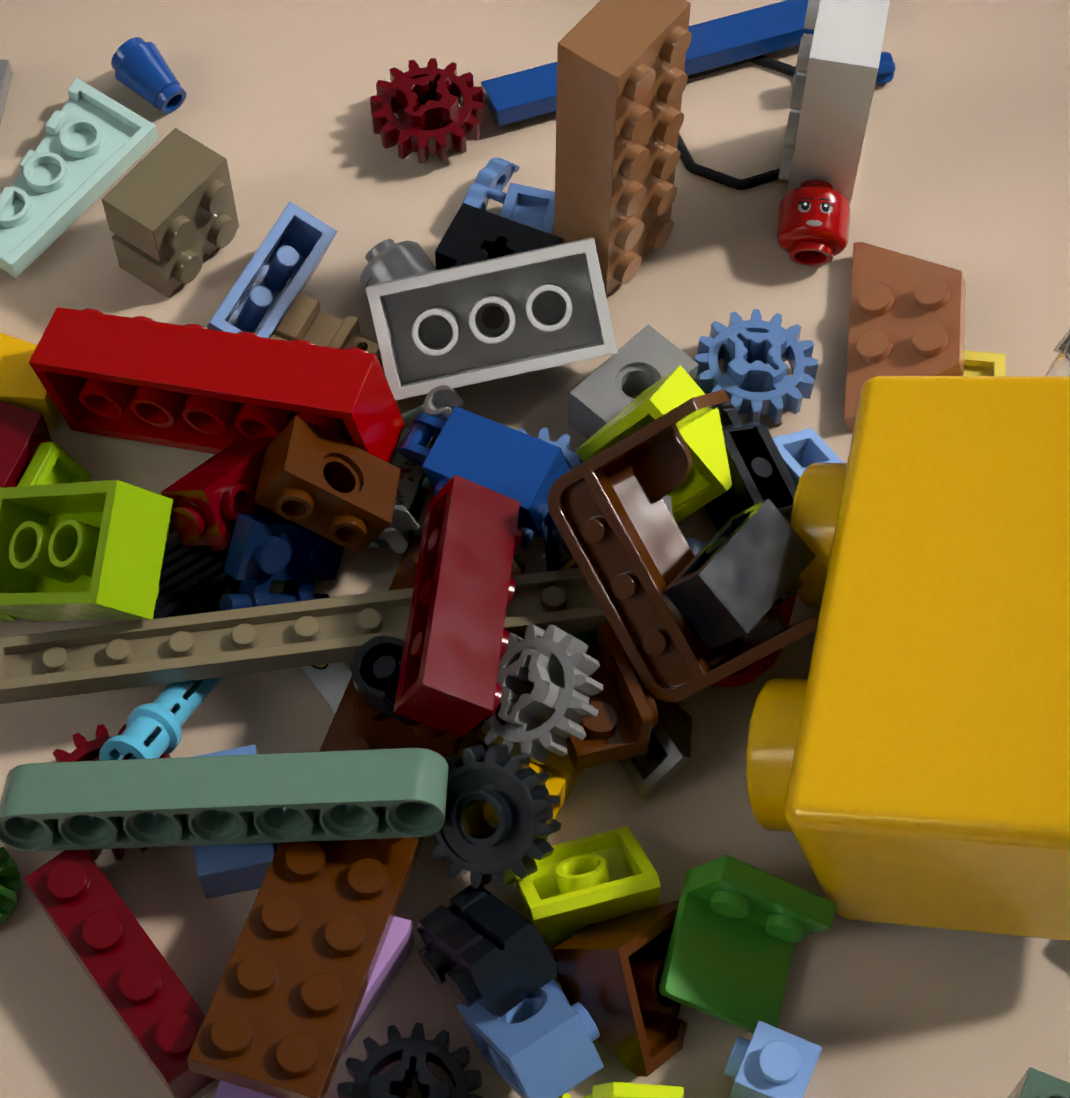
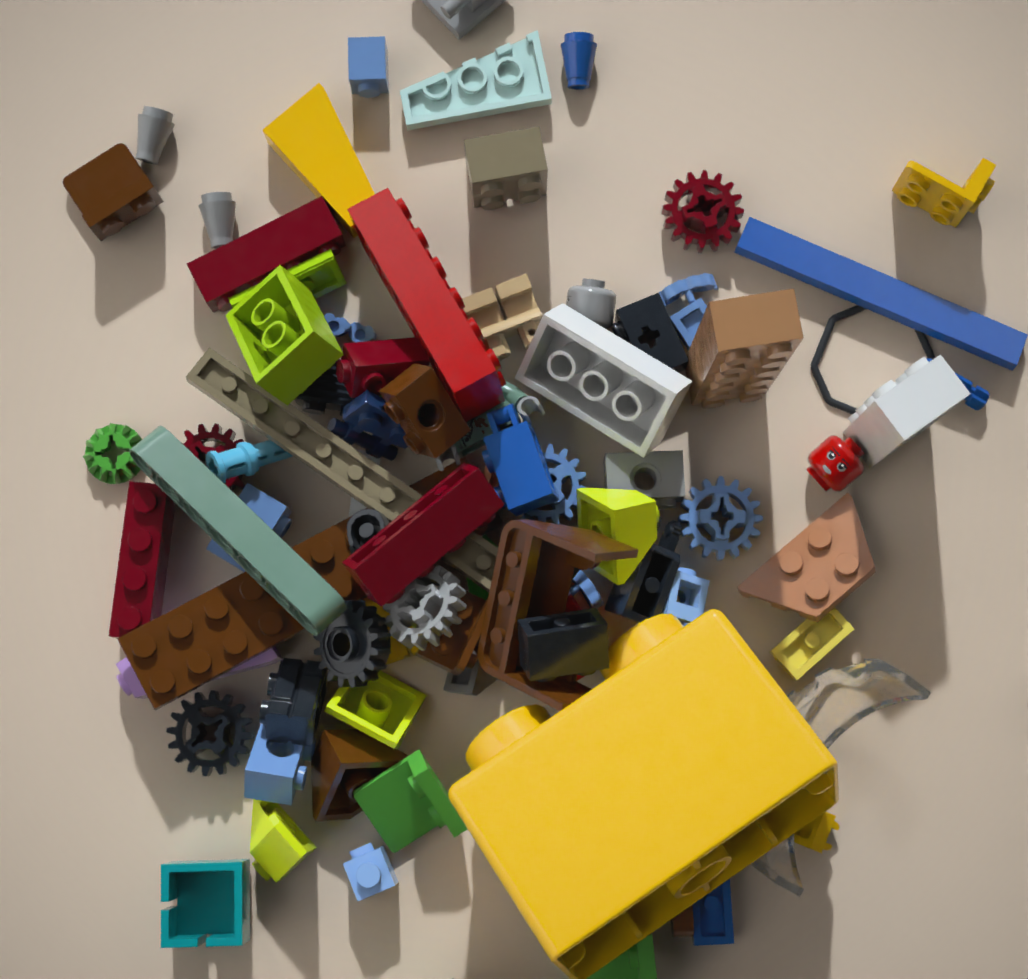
camera: 45 degrees right, 20 degrees up
(275, 274) = (514, 256): medium blue brick -> none

